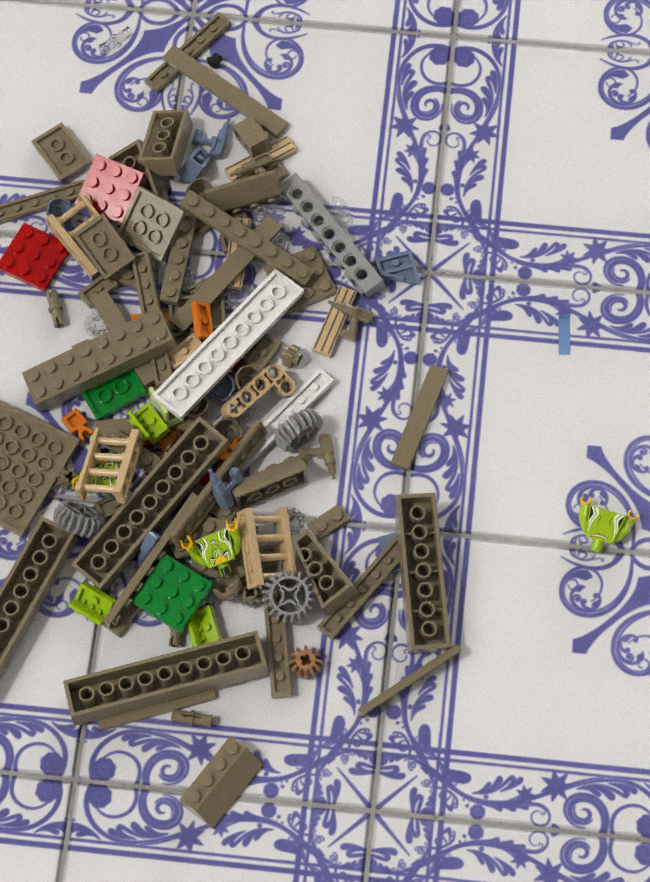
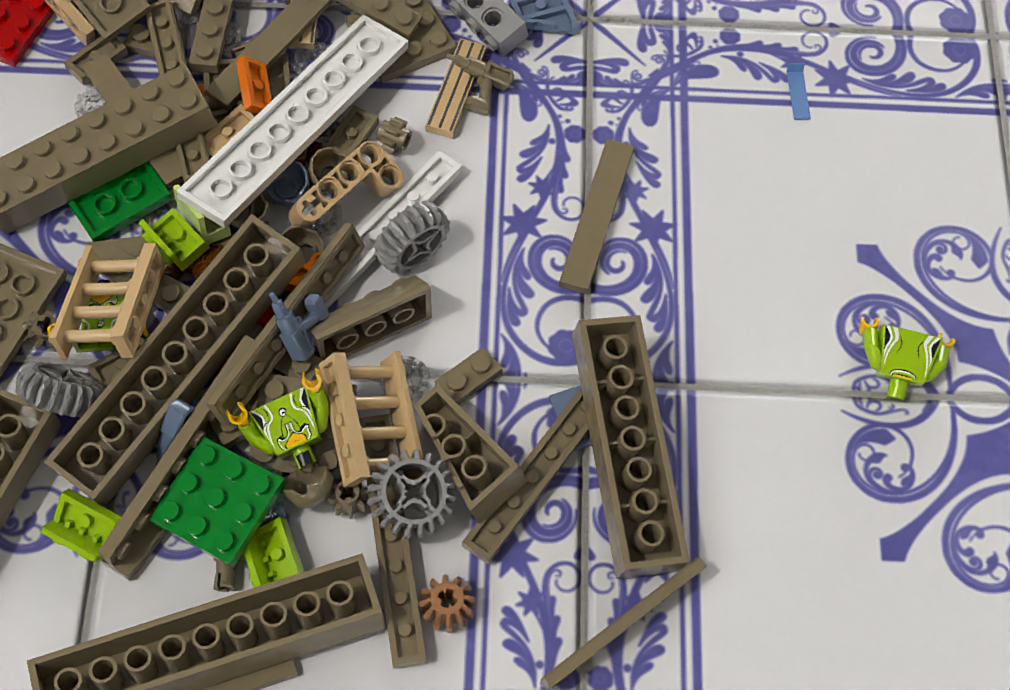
camera: 10 degrees left, 5 degrees down
(55, 308) = (29, 86): dark tan pin -> none
(76, 423) = (59, 247): orange plate -> none
(324, 451) = (456, 270): dark tan piece -> none

